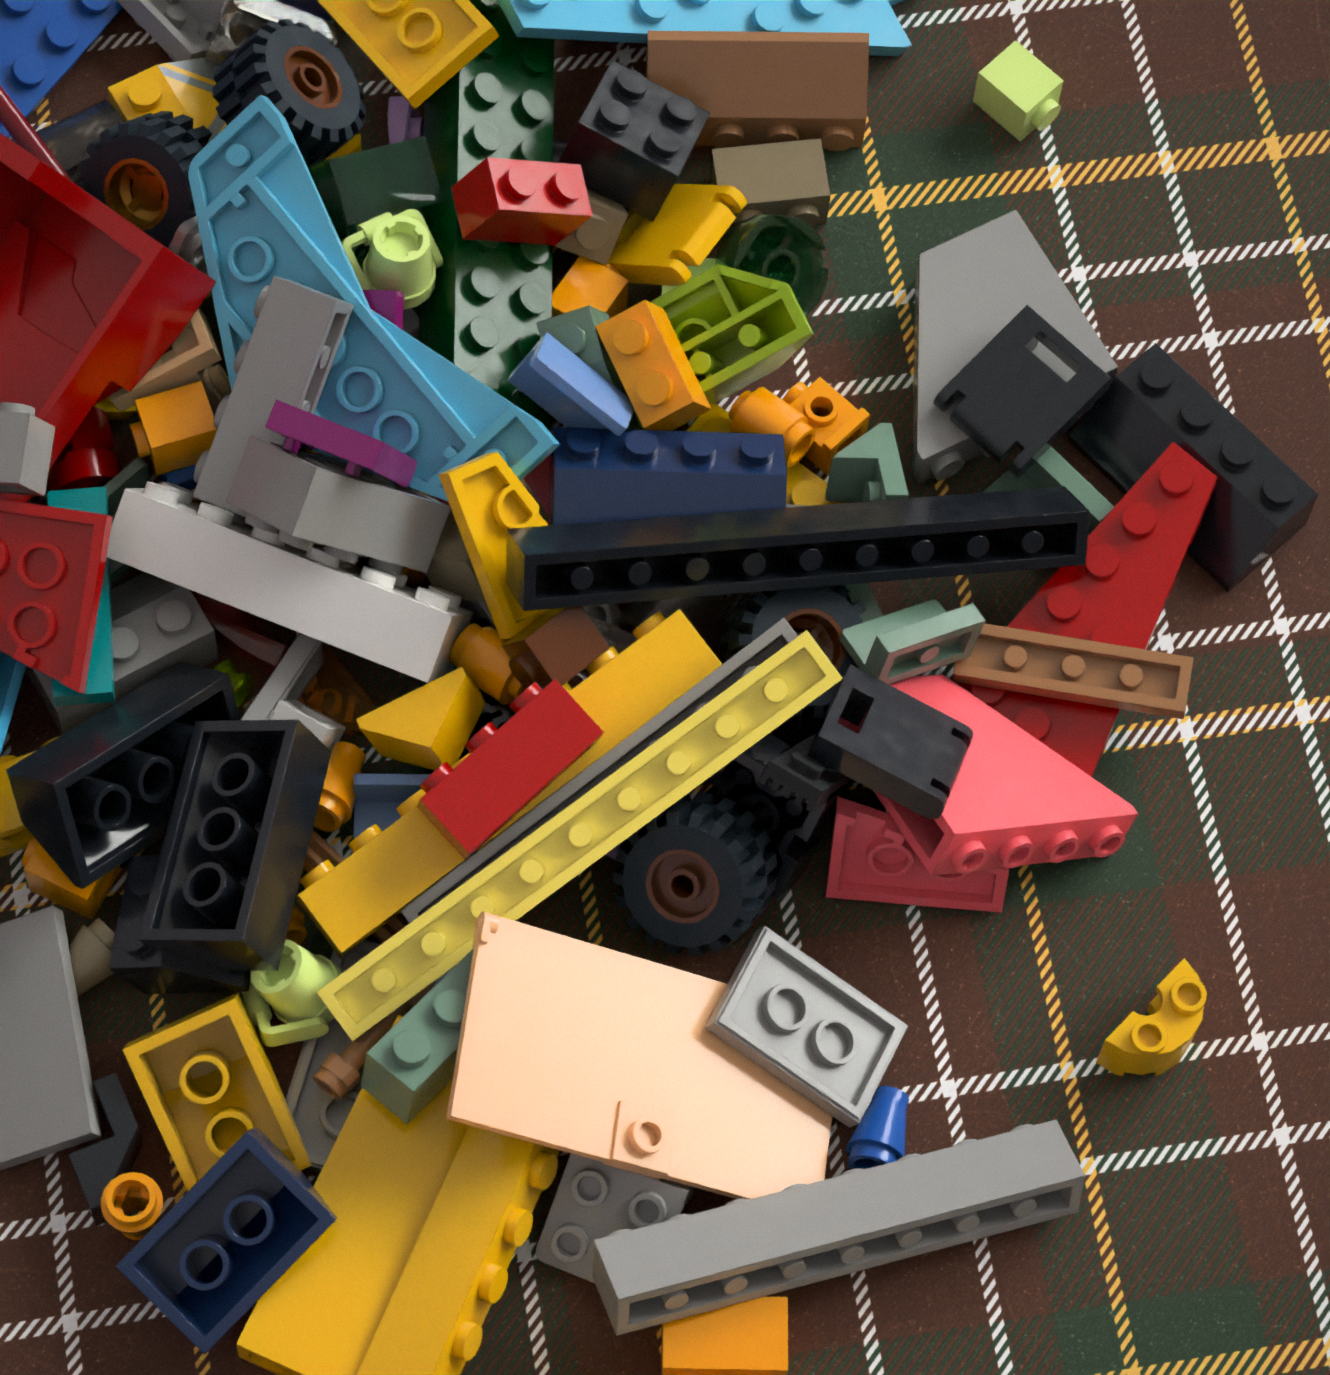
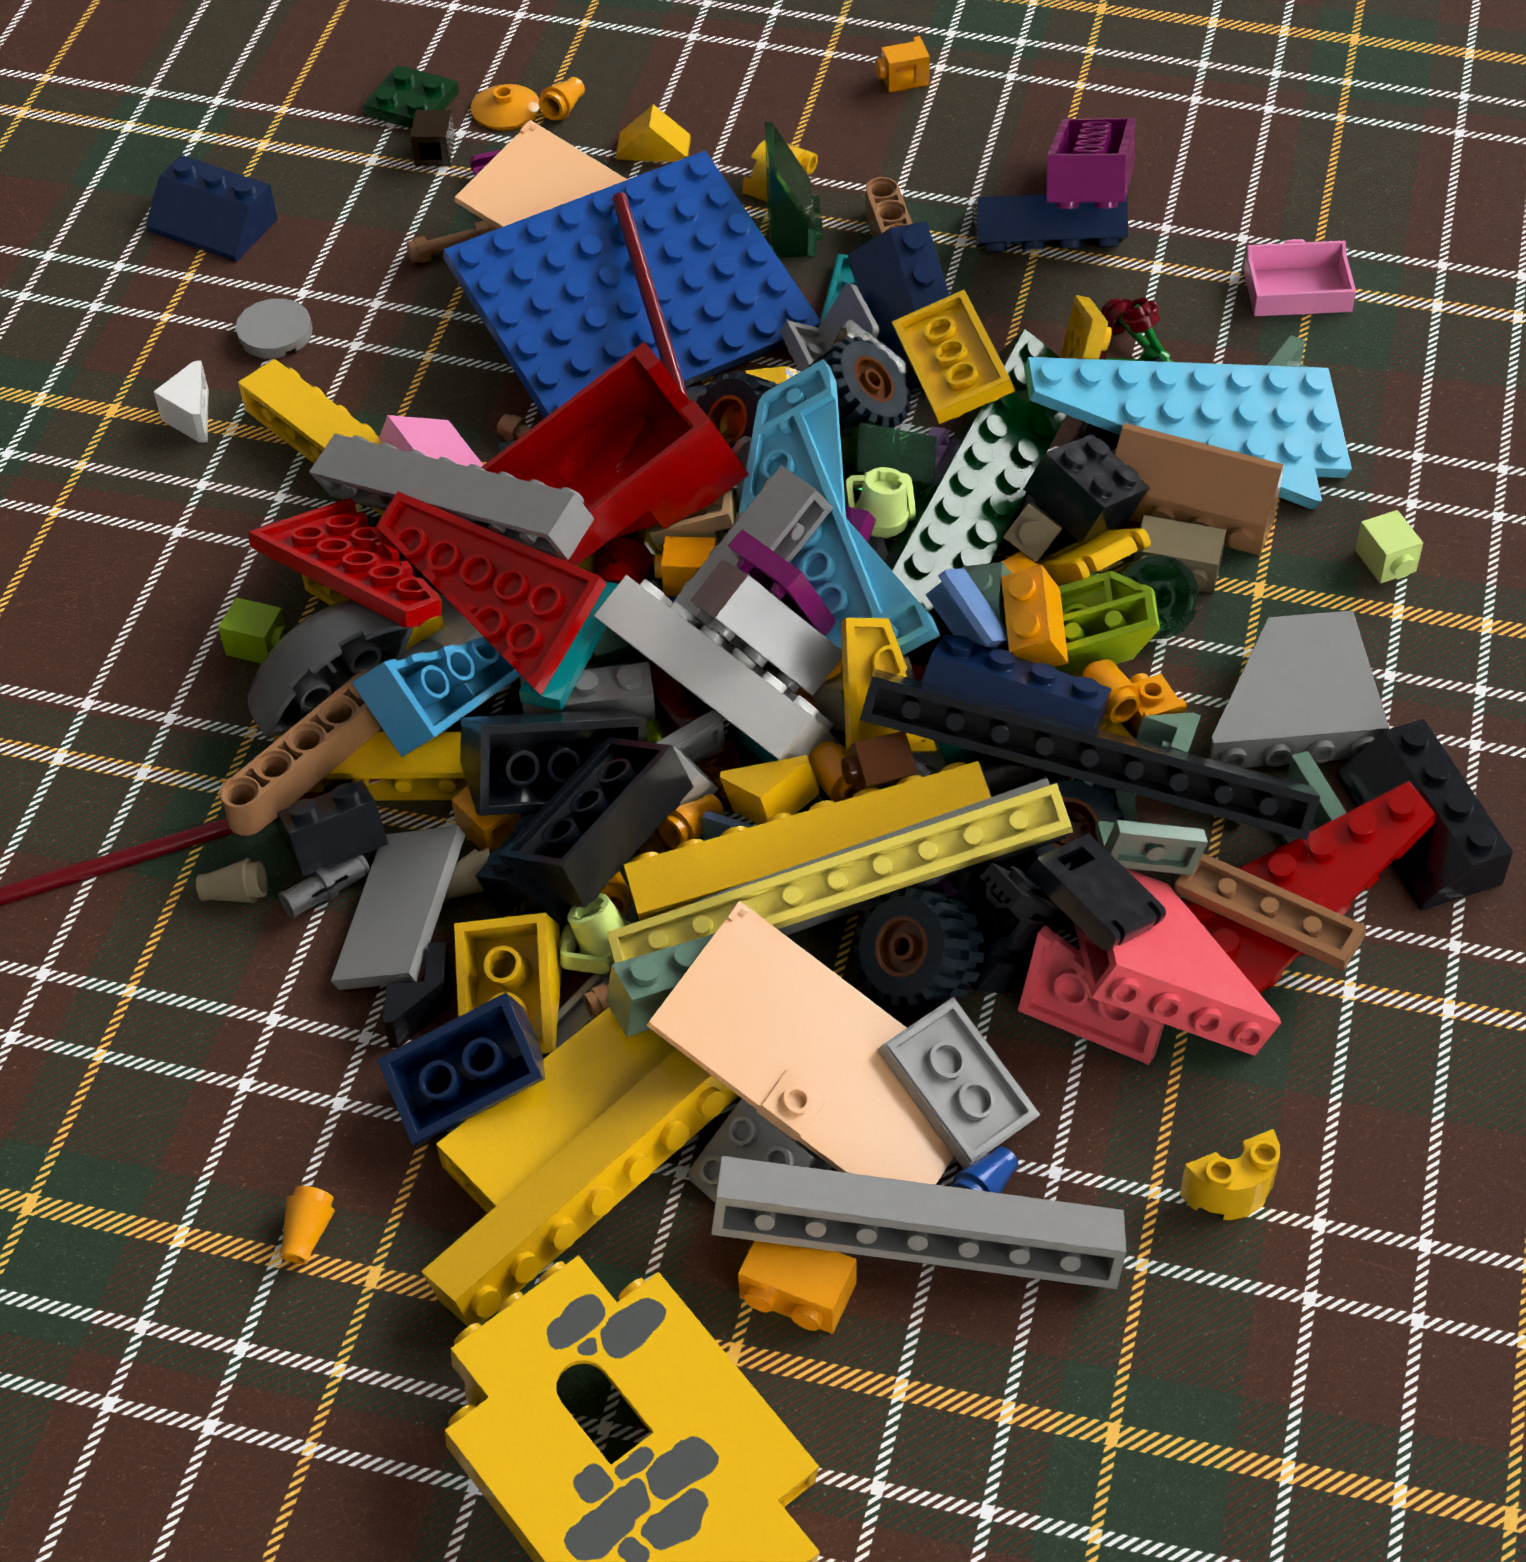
camera: 30 degrees right, 15 degrees down
(132, 1193) = (410, 1023): light orange cone -> none
(507, 766) = (806, 822): red brick -> none
(521, 201) = (984, 490): red brick -> none
(1017, 397) = (1303, 721): black container -> none

